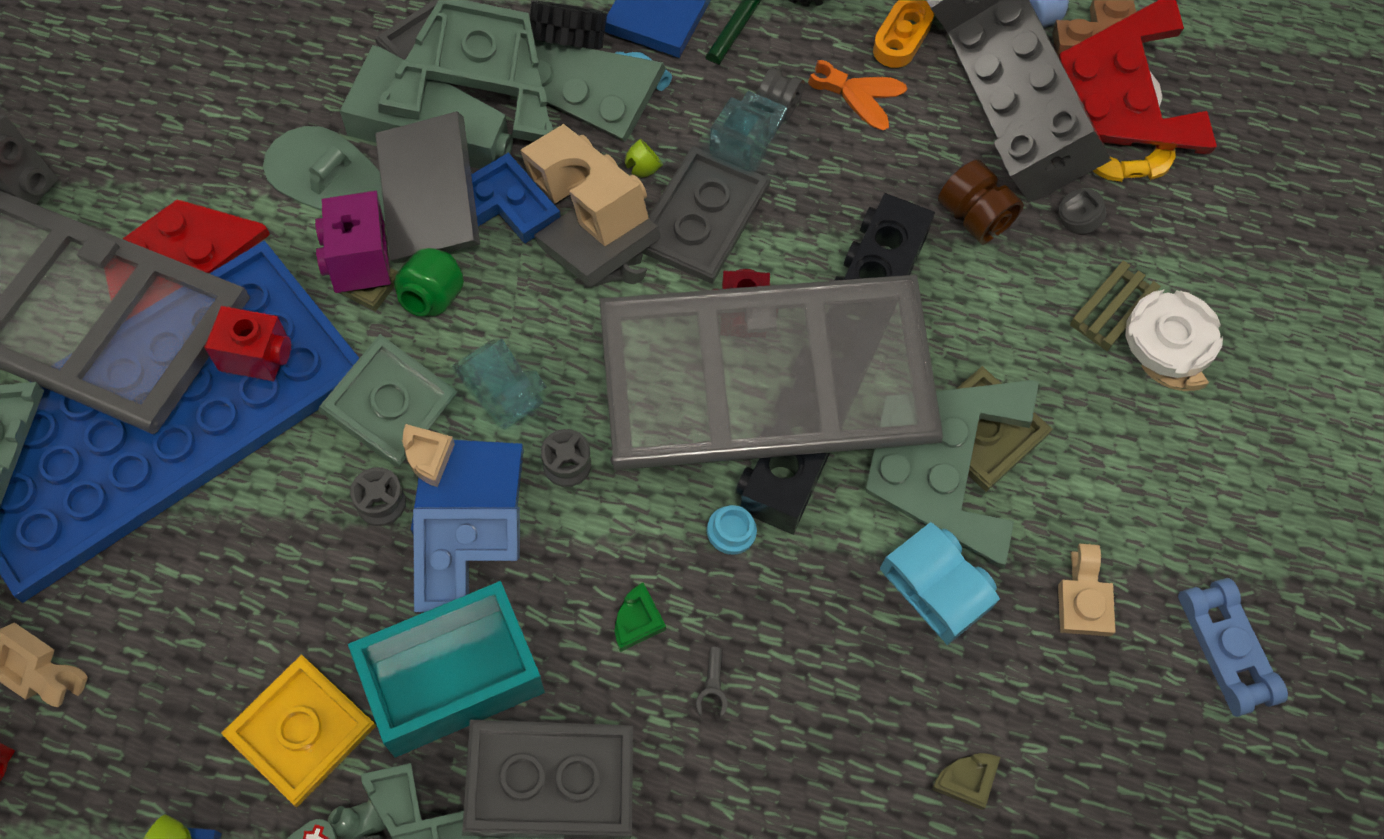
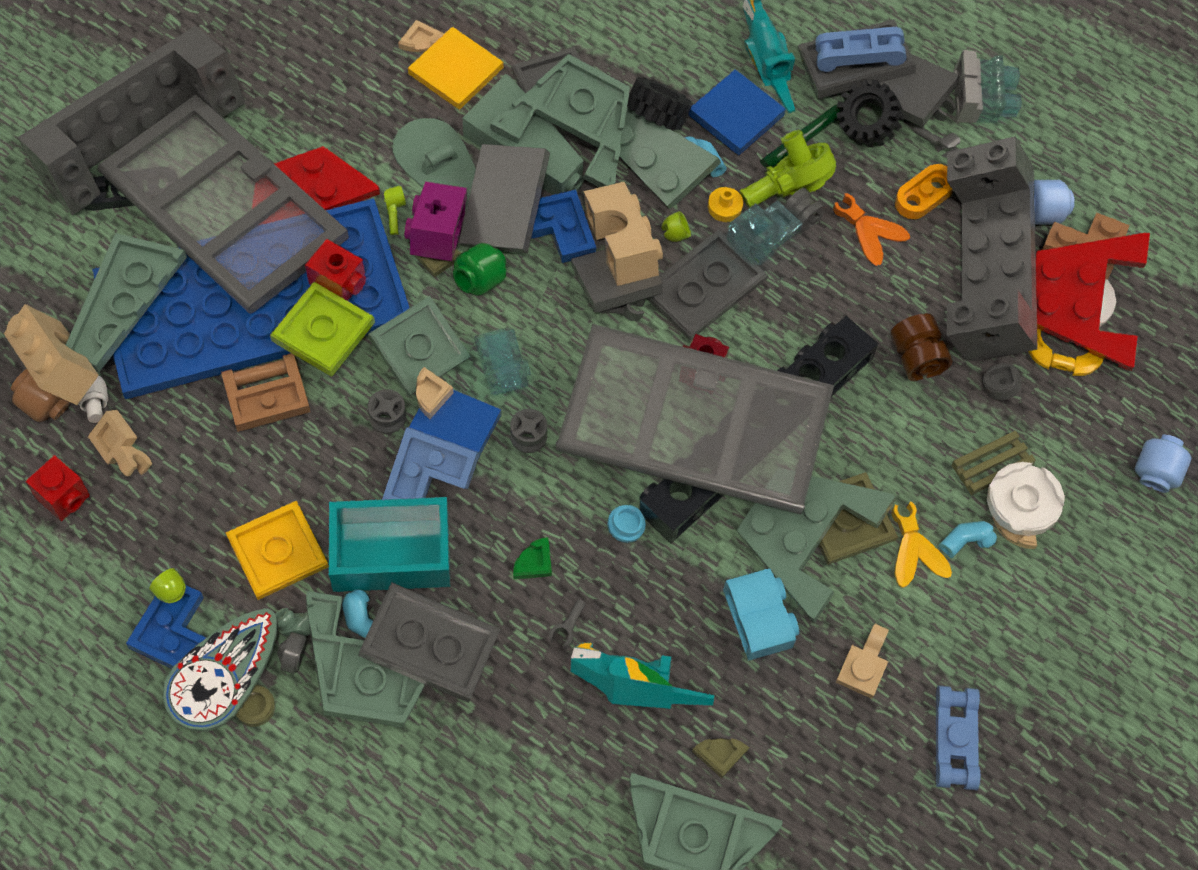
camera: 20 degrees right, 0 degrees up
(217, 537) = (269, 400): none -> medium nougat plate
(253, 39) = (419, 37): none -> tan tile
(256, 421) = (322, 329): none -> lime tile
(290, 234) = (394, 198): none -> lime hand
(308, 61) = (455, 68): none -> yellow tile
(436, 775) = (356, 612): none -> medium azure arm
(687, 116) = (725, 204): none -> yellow tile
(760, 45) = (802, 168): none -> lime pin
(823, 727) = (632, 680): none -> teal animal
(1075, 435) = (913, 547): none -> yellow piece
(1139, 390) = (968, 532): none -> medium azure arm
(1298, 241) = (1163, 463): none -> light blue head

